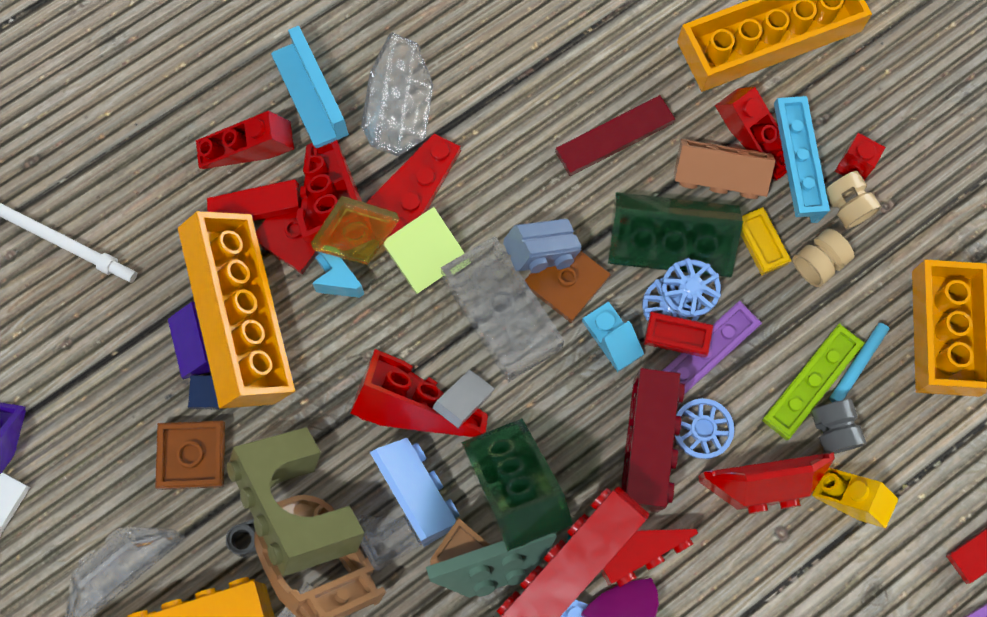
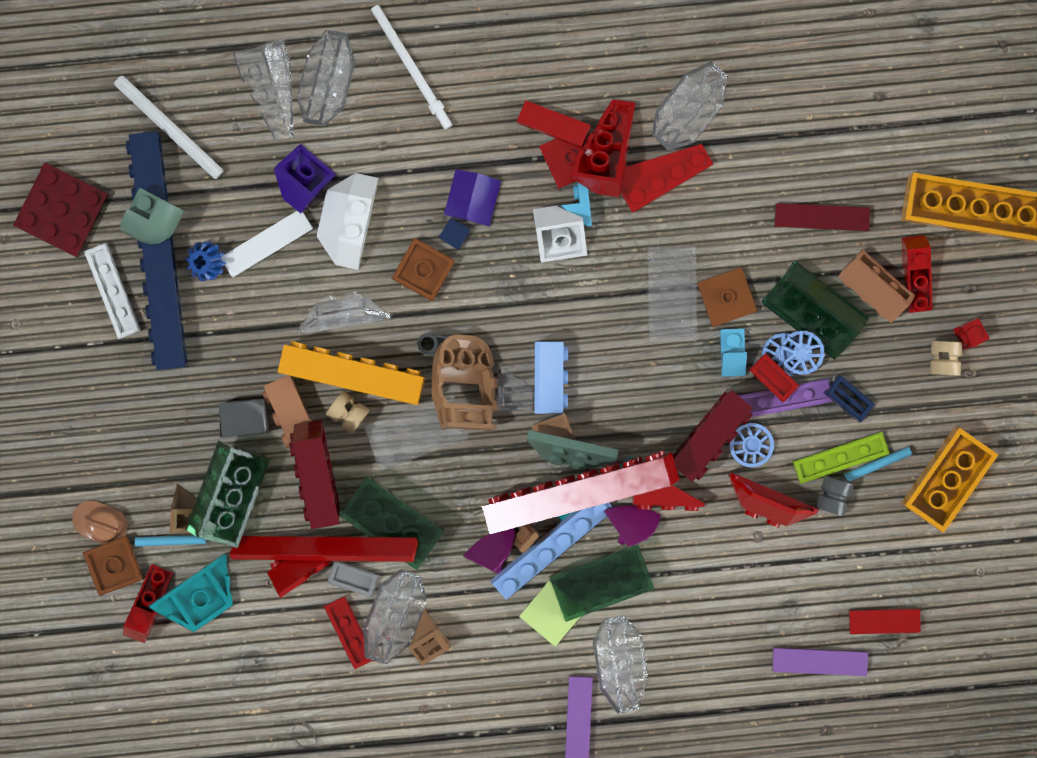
camera: 30 degrees right, 15 degrees up
(65, 452) = (347, 219): none -> white wedge
(235, 310) = (503, 193): light orange brick -> none
(247, 141) = (571, 75): red slope -> none
(291, 539) = (458, 366): olive arch -> none
(309, 91) = (635, 62): medium azure panel -> none
(331, 319) = (559, 234): none -> white slope
(354, 230) = (607, 190): clear yellow tile -> none
(400, 399) = (575, 314): red wedge -> none
(423, 249) = (646, 223): yellowish green tile -> none
(463, 398) = (613, 337): light grey tile -> none
(517, 484) = (612, 412): clear green brick -> none
(542, 245) = (722, 270): sand blue brick -> none
(763, 242) = (871, 348): yellow tile -> none
(777, 313) = (834, 387): none -> dark blue tile
(801, 158) = (931, 310): medium azure panel -> none
(820, 261) = (898, 385): tan wheel -> none
(857, 496) = (816, 543): yellow slope -> none

